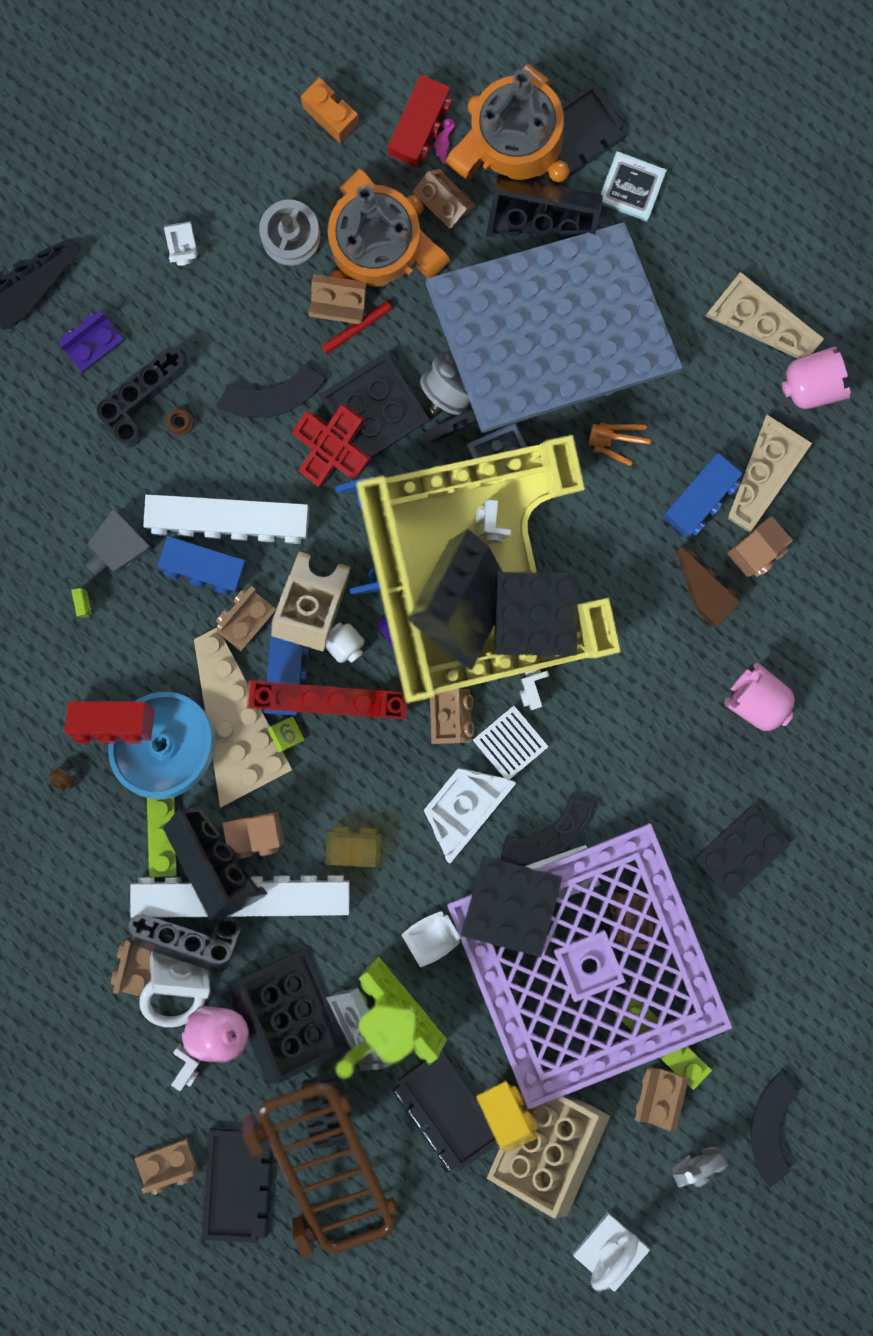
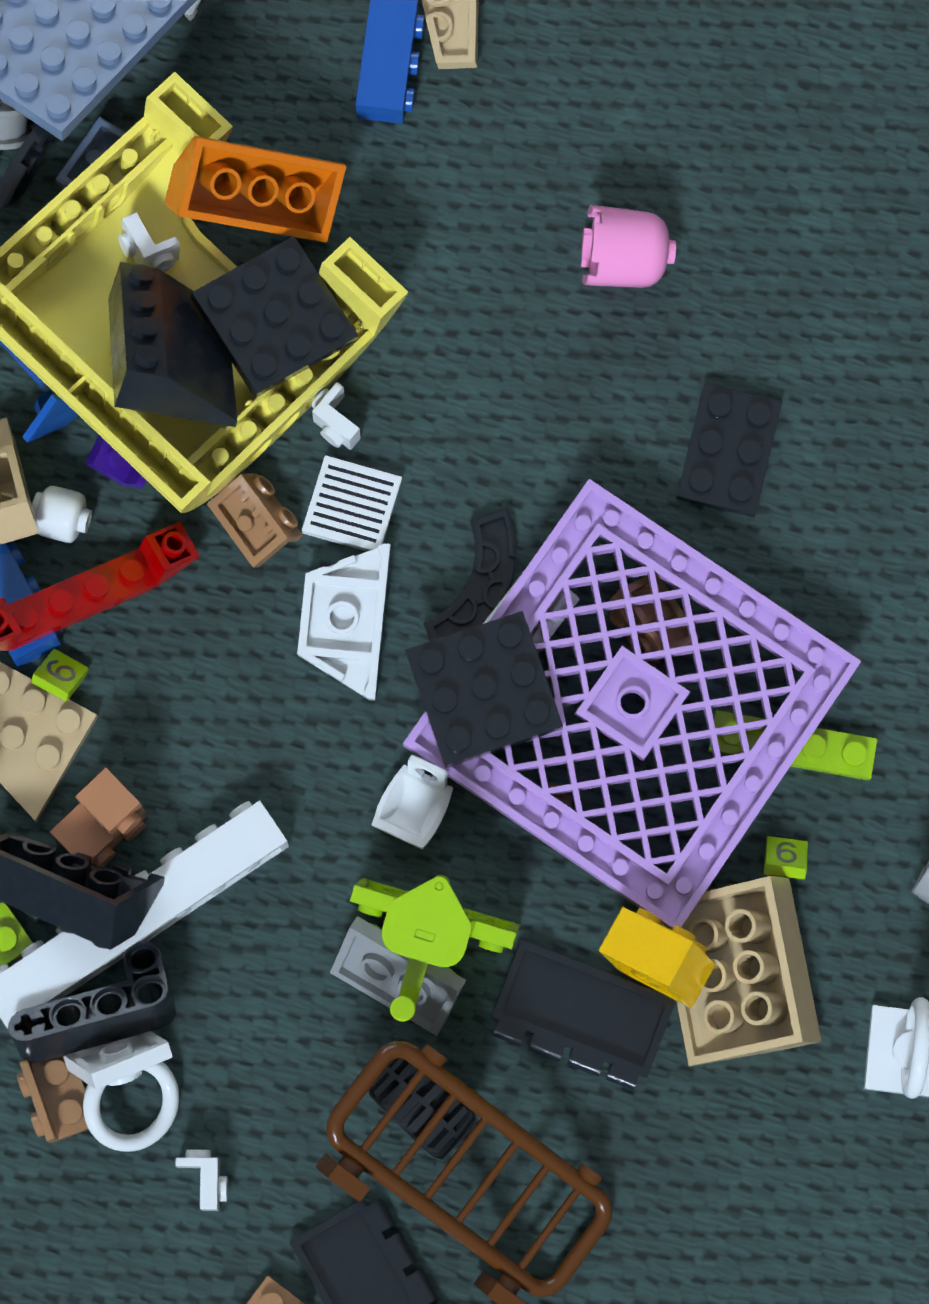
camera: 30 degrees left, 10 degrees down
(215, 1034) = (214, 1102): bright pink cylinder -> none
(287, 1016) = (291, 1026): black slope -> none
(353, 848) = (239, 759): clear yellow brick -> none
(572, 533) = (255, 188): none -> orange slope
(602, 435) = (217, 67): orange plant -> none
(616, 1102) = (785, 857): none -> lime tile
(661, 1098) = (837, 812): medium nougat bracket -> none
(708, 596) = (471, 168): reddish brown slope -> none
(760, 547) = (499, 75): nougat brick -> none

